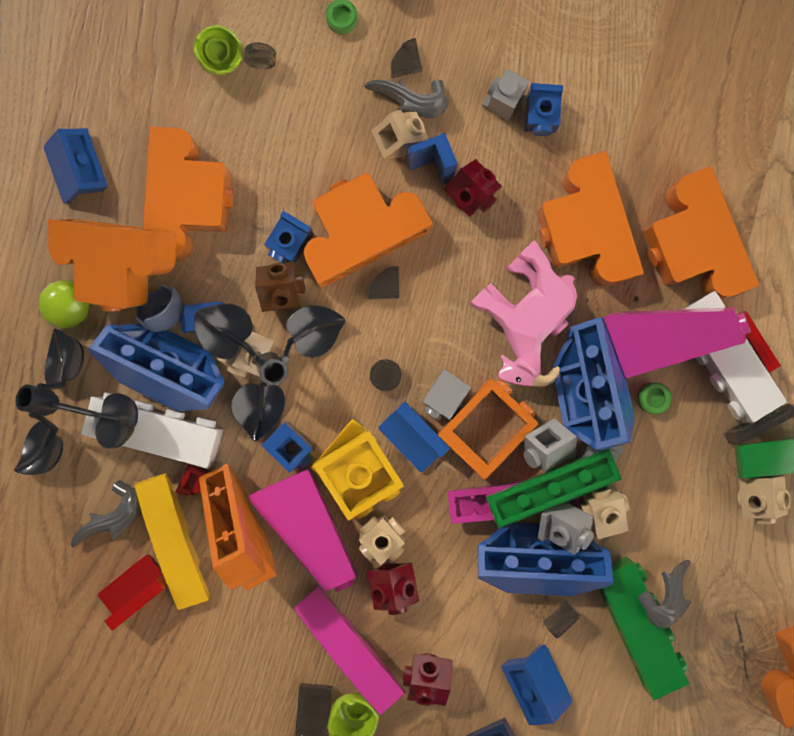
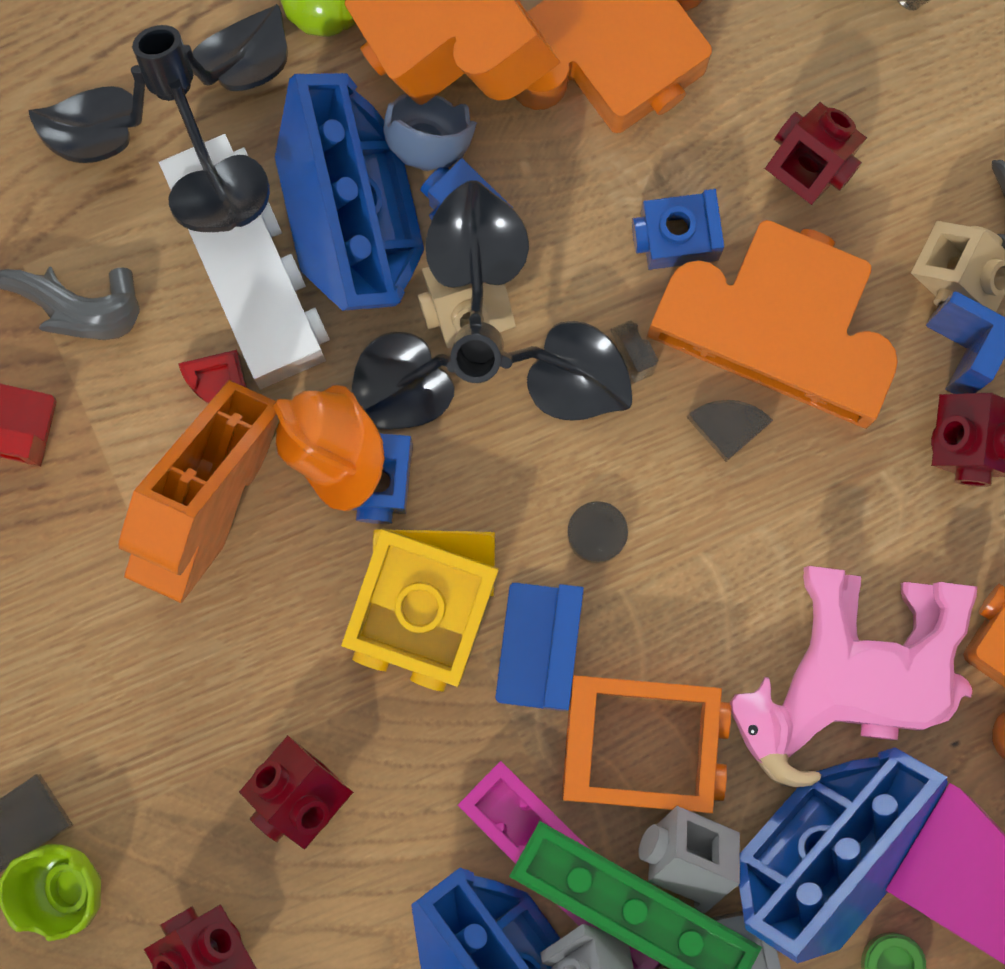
camera: 50 degrees right, 5 degrees down
(171, 541) = (104, 416): yellow slope -> none
(260, 457) = (331, 444): none -> orange piece
(279, 286) = (600, 272): reddish brown brick -> none
(301, 155) = (816, 152): none -> dark red brick
(306, 525) = (284, 589): dark pink slope -> none
(323, 298) = (636, 352): none -> clear smoke tile
(350, 650) = (149, 806): dark pink slope -> none
(382, 527) = (377, 723): tan brick -> none
(445, 396) = (638, 642): light grey brick -> none

